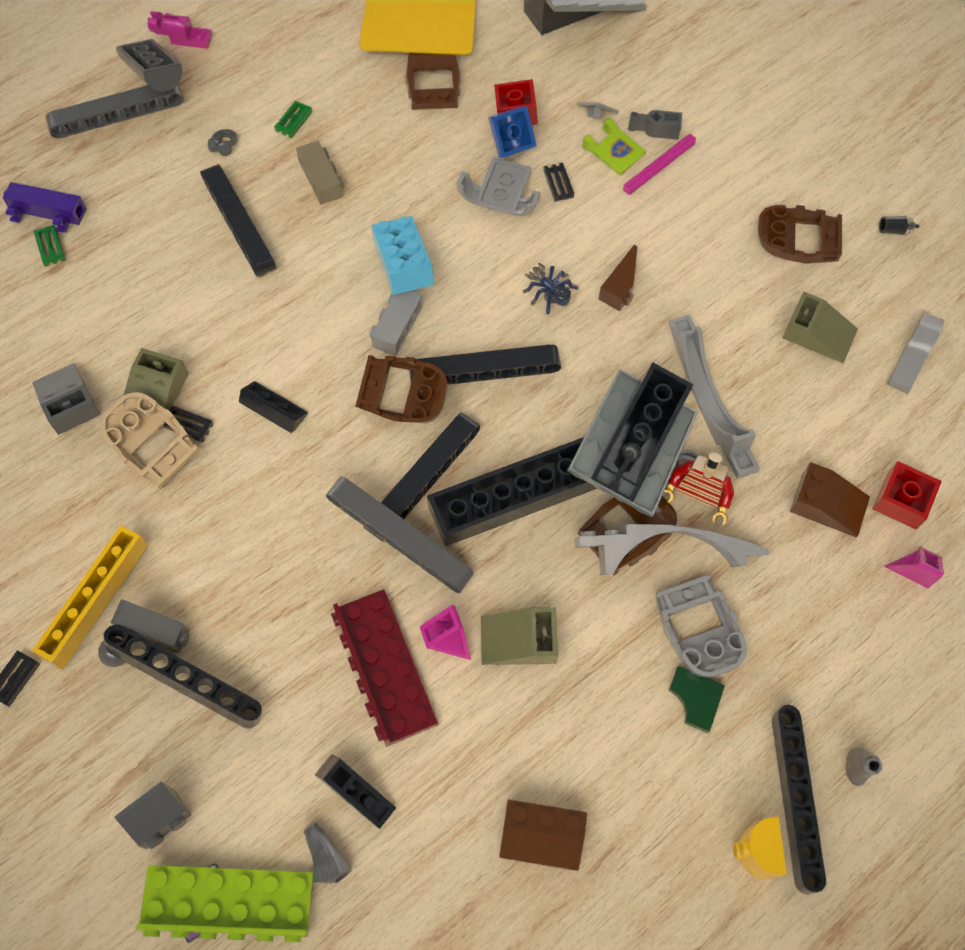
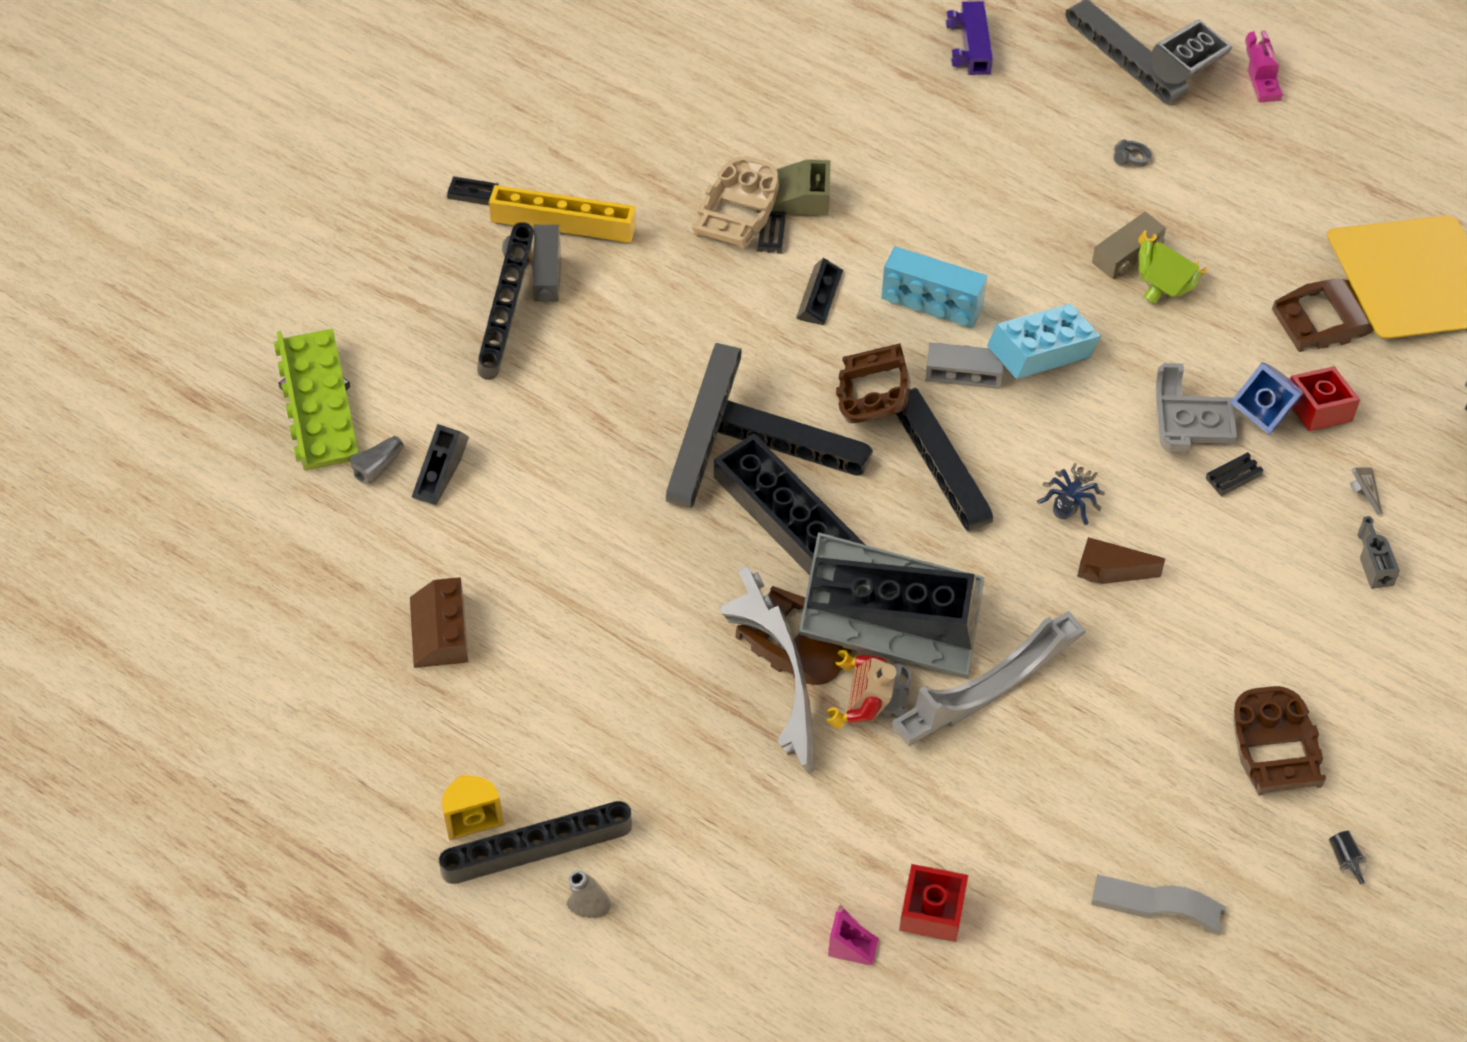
camera: 75 degrees right, 10 degrees down
(53, 257) = (933, 62): green tile -> none
(65, 399) = (757, 128): dark grey slope -> none
(153, 816) = (377, 320): dark grey slope -> none
(238, 220) = (1031, 195): black beam -> none
(296, 121) = (1196, 206): green tile -> none
(313, 314) = (933, 287): none -> medium azure brick
(359, 154) = (1165, 270): none -> lime torso
(384, 668) = (567, 456): dark red bracket -> none
(446, 633) = (619, 501): dark pink slope -> none
(520, 637) = (633, 562): olive slope -> none
(616, 149) = (1315, 524): lime flag -> none
(659, 164) = (1317, 572): dark pink axle -> none
(699, 698) = (620, 737): dark green tile -> none
(714, 650) = (676, 740): light grey slope -> none
(820, 328) = (1137, 781): olive slope -> none
(830, 500) = (900, 827): reddish brown slope -> none

